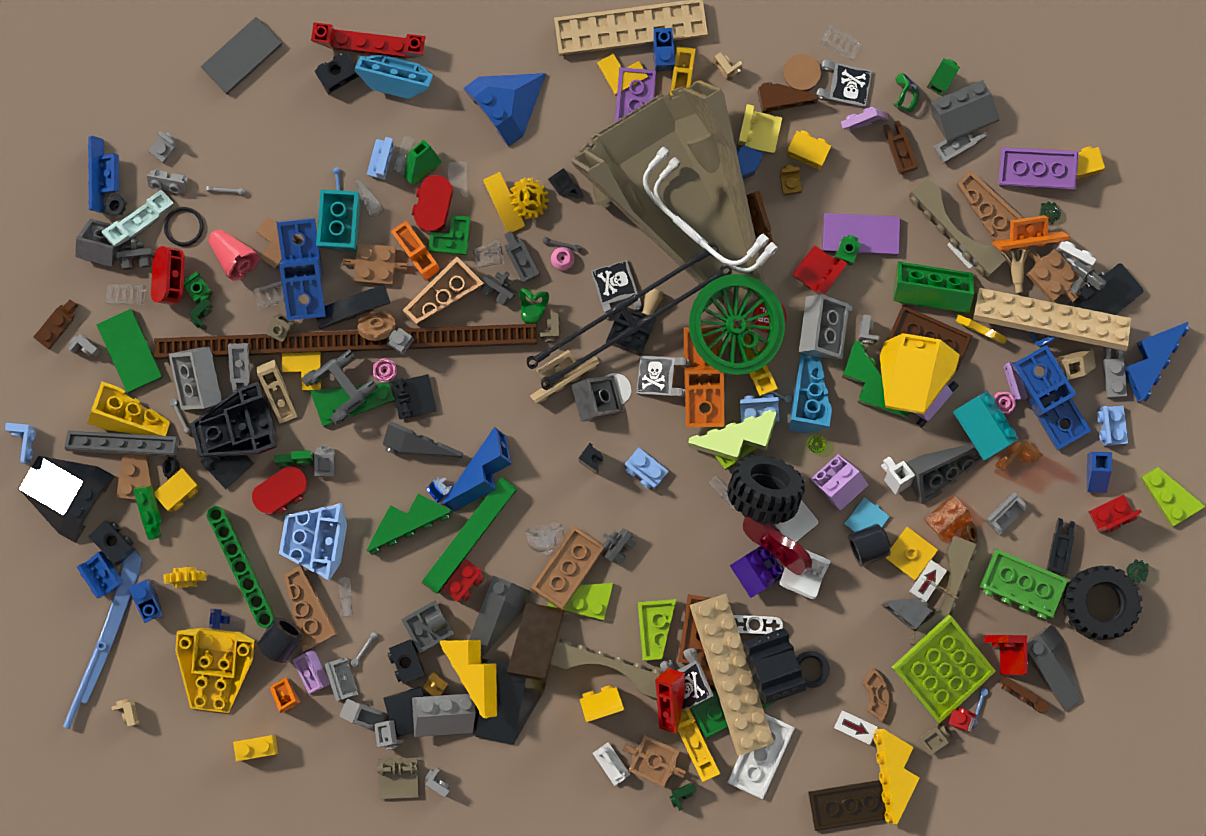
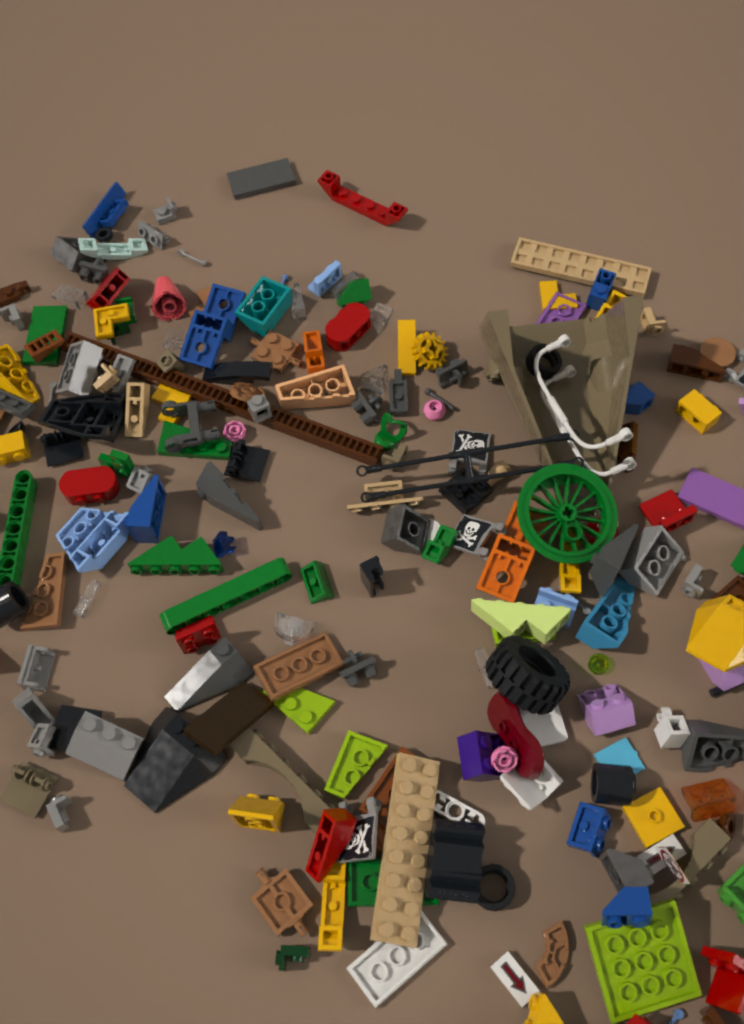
camera: 30 degrees right, 20 degrees down
(136, 363) = (38, 353): none -> dark orange slope
(183, 209) = (145, 281): black tyre -> none
(188, 307) = (106, 316): none -> yellow tile
(234, 379) = (107, 380): none -> tan bracket
(311, 671) = (16, 649): lavender slope -> none
(333, 82) = (325, 212): black brick -> none
(355, 498) = (147, 513): none -> blue slope
(355, 662) = (59, 661): light grey hinge -> none
(393, 75) = (365, 228): dark azure wedge -> none
(415, 670) = (106, 692): black brick -> none
(427, 626) = (141, 659): dark grey plate -> none
(435, 685) = (117, 714): pearl gold bracket -> none
(456, 241) = (353, 359): green plate -> none
(476, 677) = (153, 720): yellow slope -> none
(478, 476) = (264, 546): blue slope -> none
(507, 101) = (450, 282): blue wedge -> none
(541, 483) = (316, 582): none -> green slope
(563, 212) = (452, 373): none -> dark grey hips
(564, 185) = (466, 351): black slope -> none
(611, 764) = (237, 882): white hinge -> none
(634, 397) = (438, 548): none -> green slope
(635, 172) = (552, 356): none -> black tyre
(645, 468) = (419, 611): light blue bracket -> none
(759, 130) = (659, 378): light yellow bracket -> none
(777, 568) = (508, 763): none -> bright pink plate
(790, 180) = (671, 428): pearl gold bracket -> none
(791, 351) = (610, 559): none -> dark grey wedge
(842, 253) = (704, 501): green brick -> none
(863, 371) = (675, 618): green slope -> none
(865, 587) = (589, 829): none -> blue bracket
(919, 640) = (628, 908): none -> blue slope

